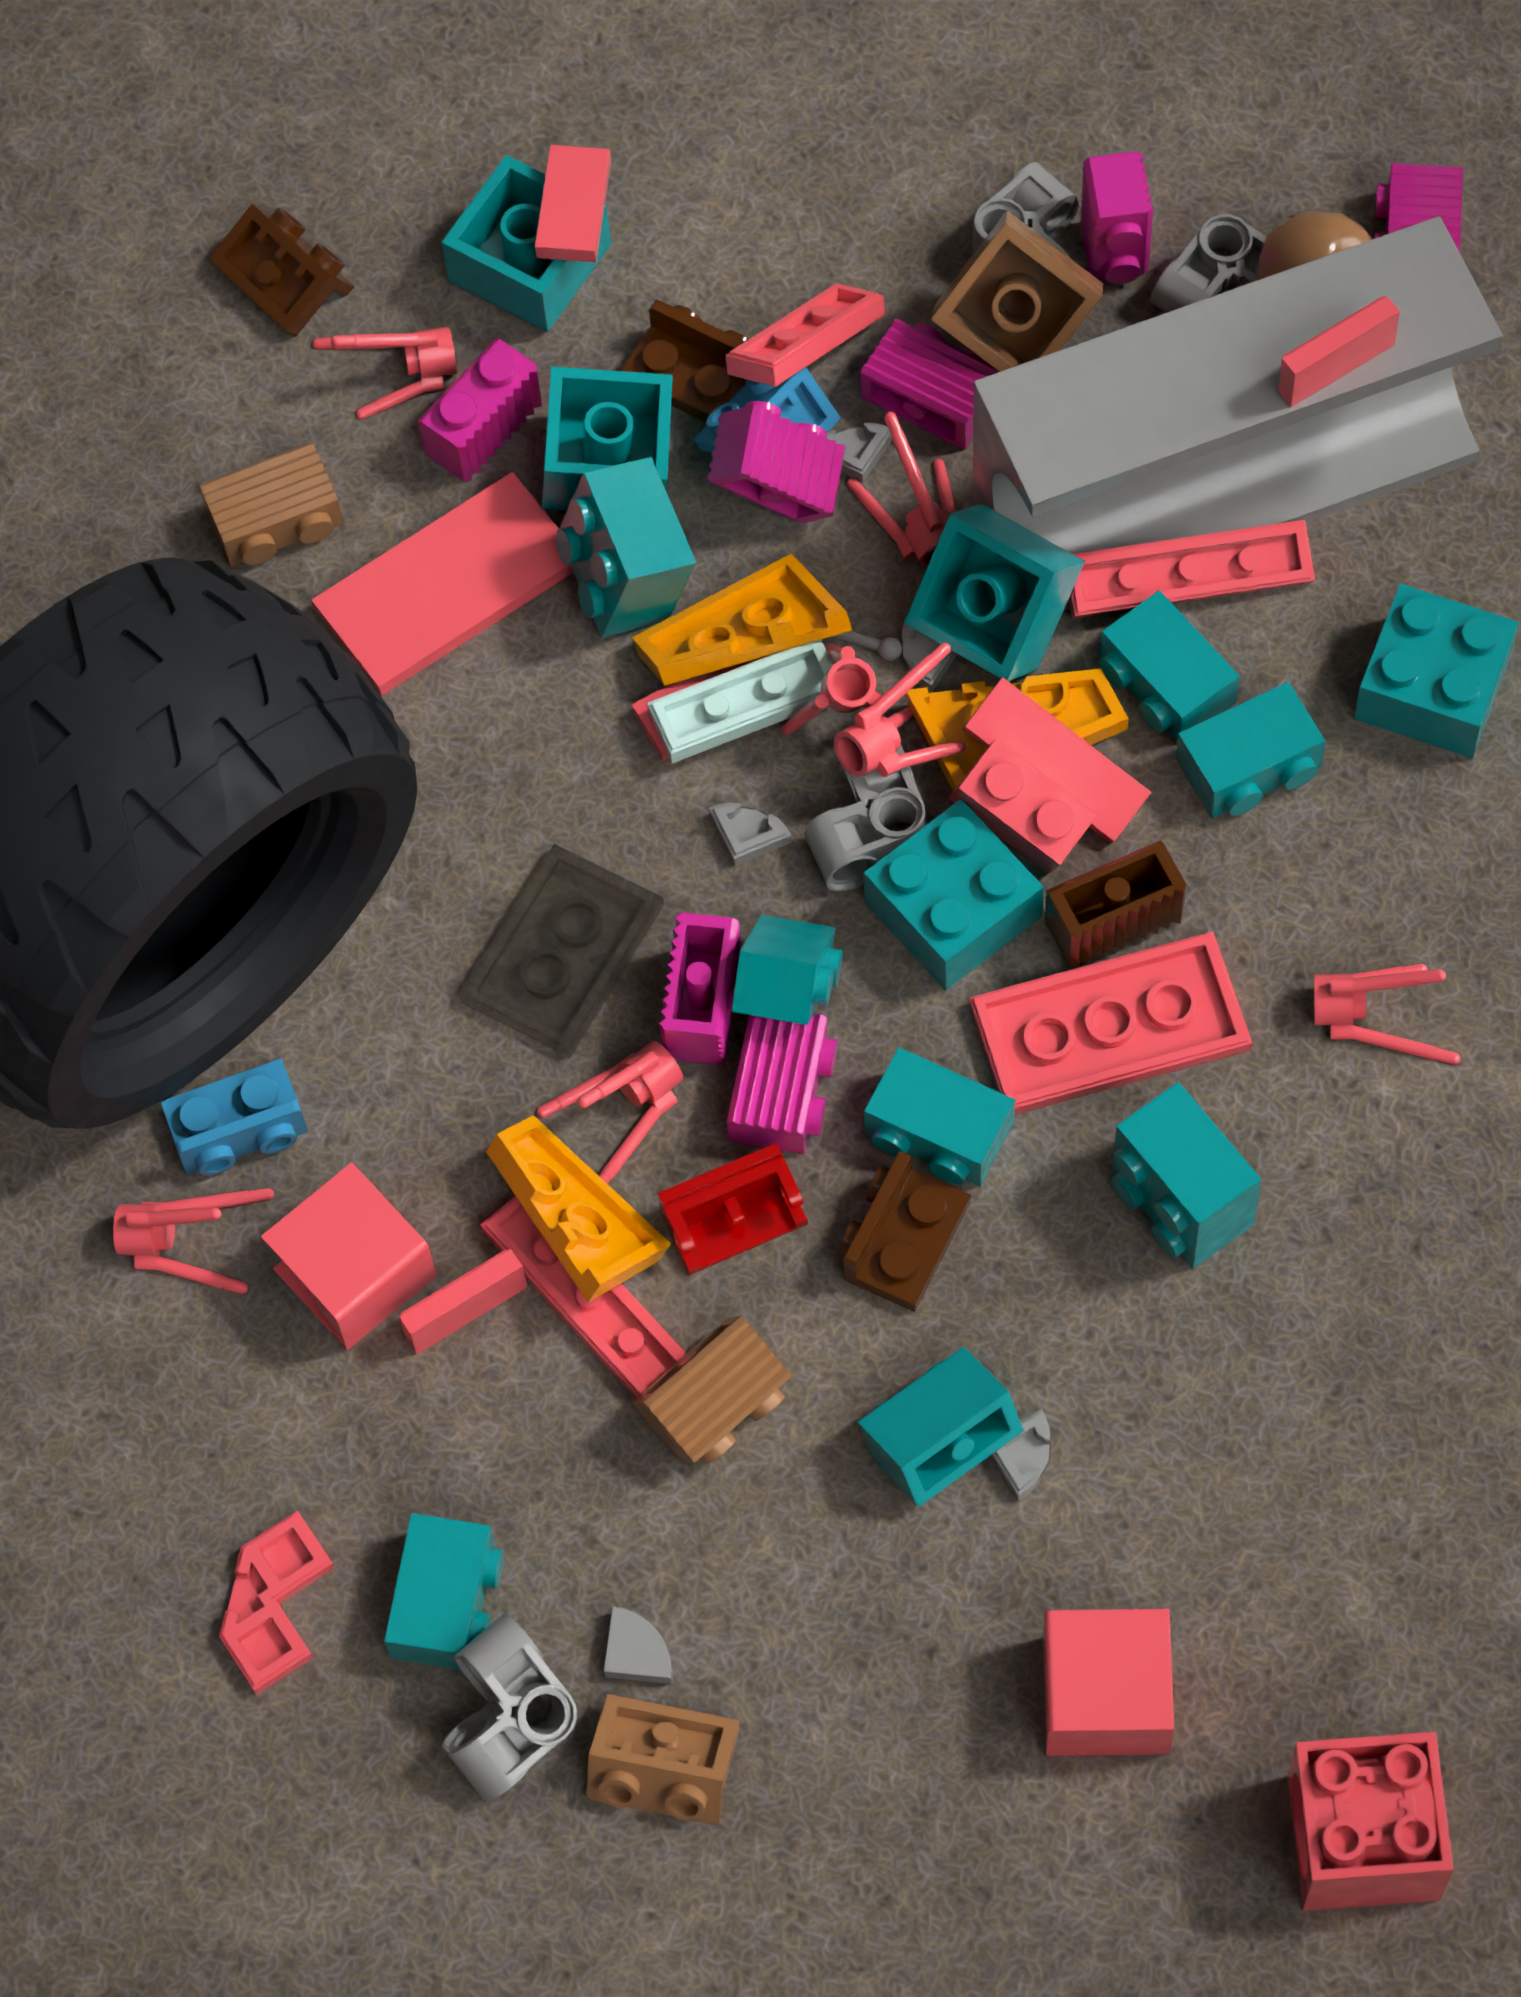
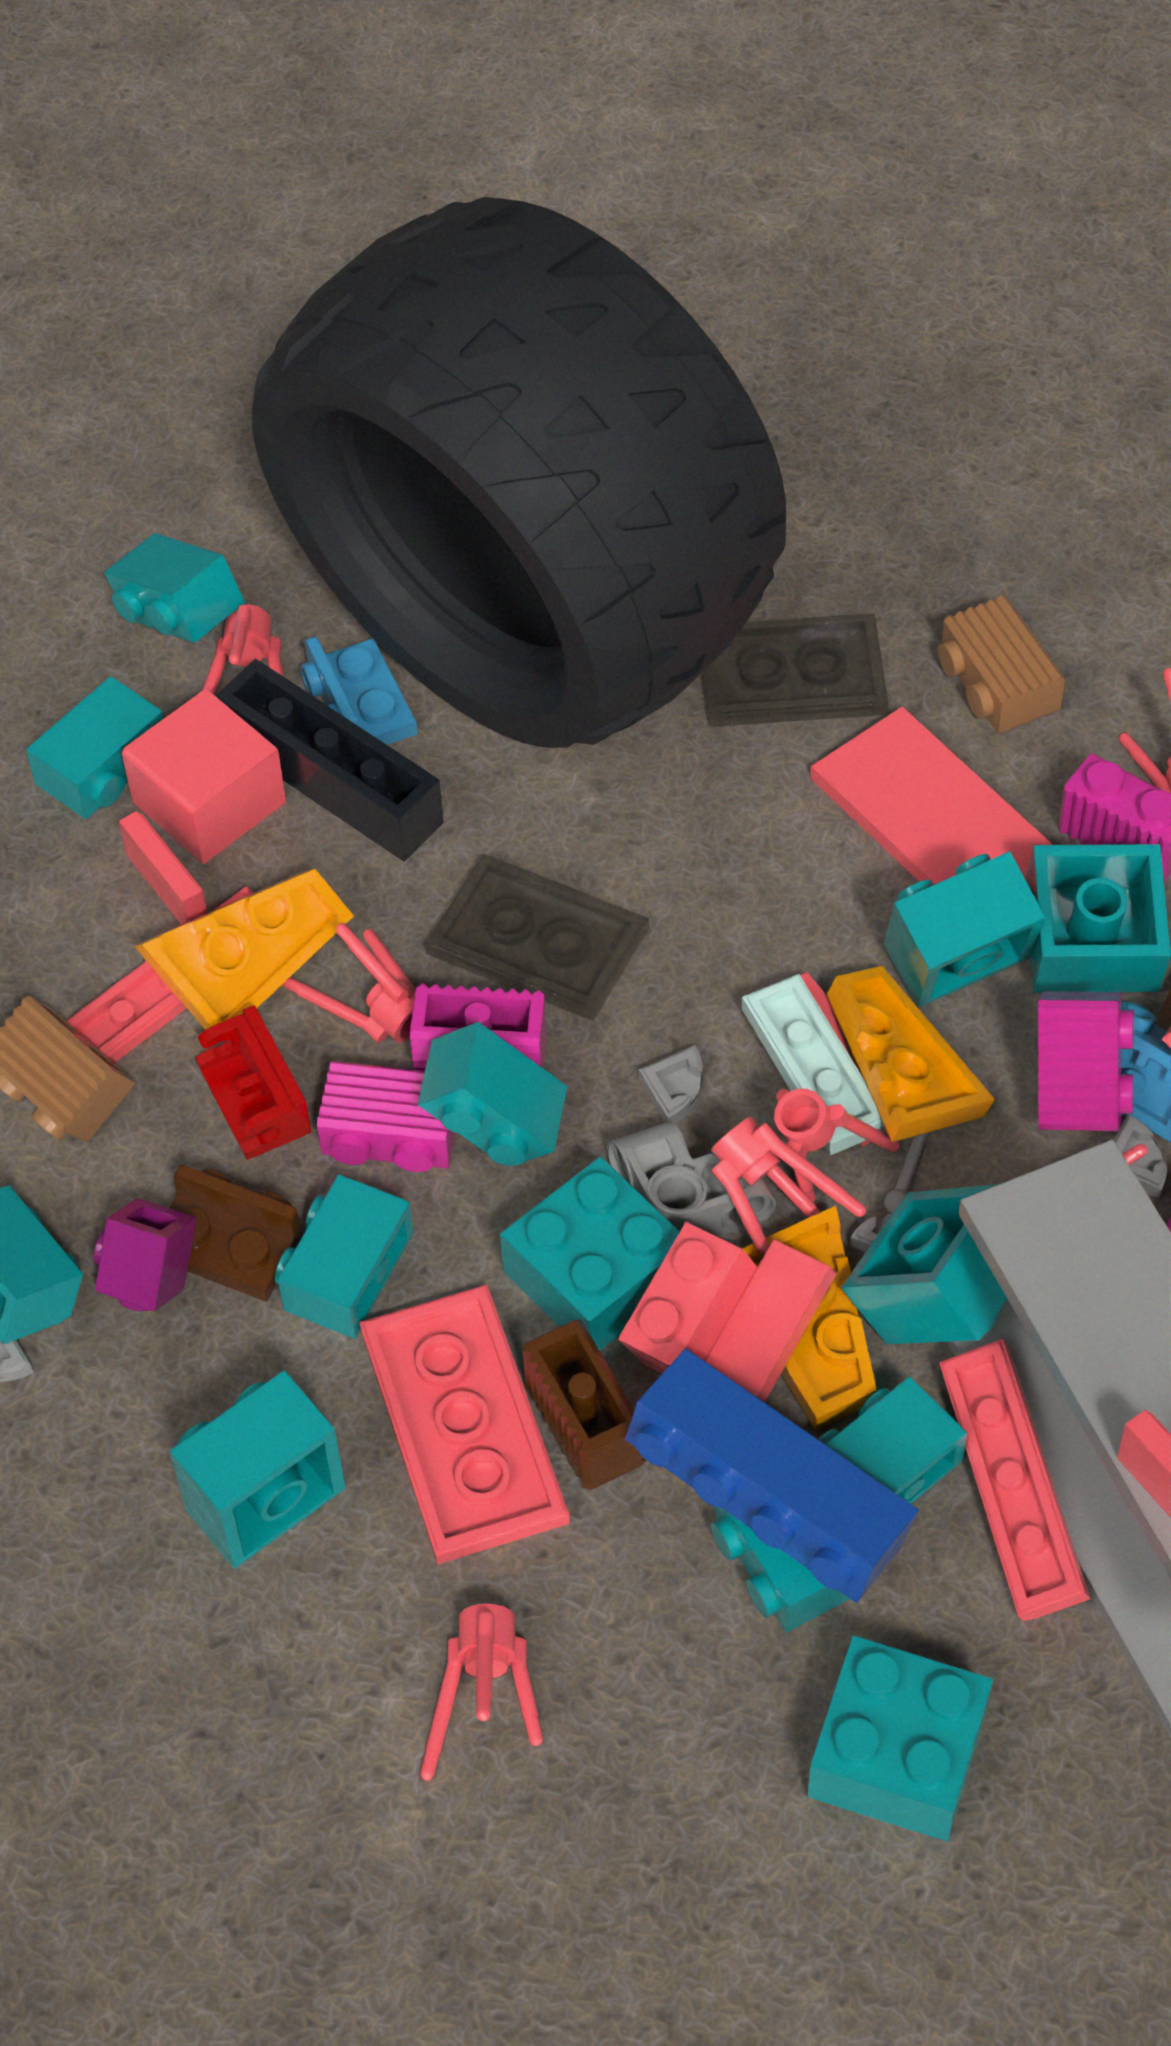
camera: 85 degrees right, 10 degrees down
(83, 1295) = (174, 587): none -> teal brick
(289, 1372) = (82, 753): none -> teal brick
(345, 1121) = (339, 761): none -> black brick
(939, 1293) = (144, 1255): none -> magenta brick
(1219, 733) = (770, 1475): none -> blue brick

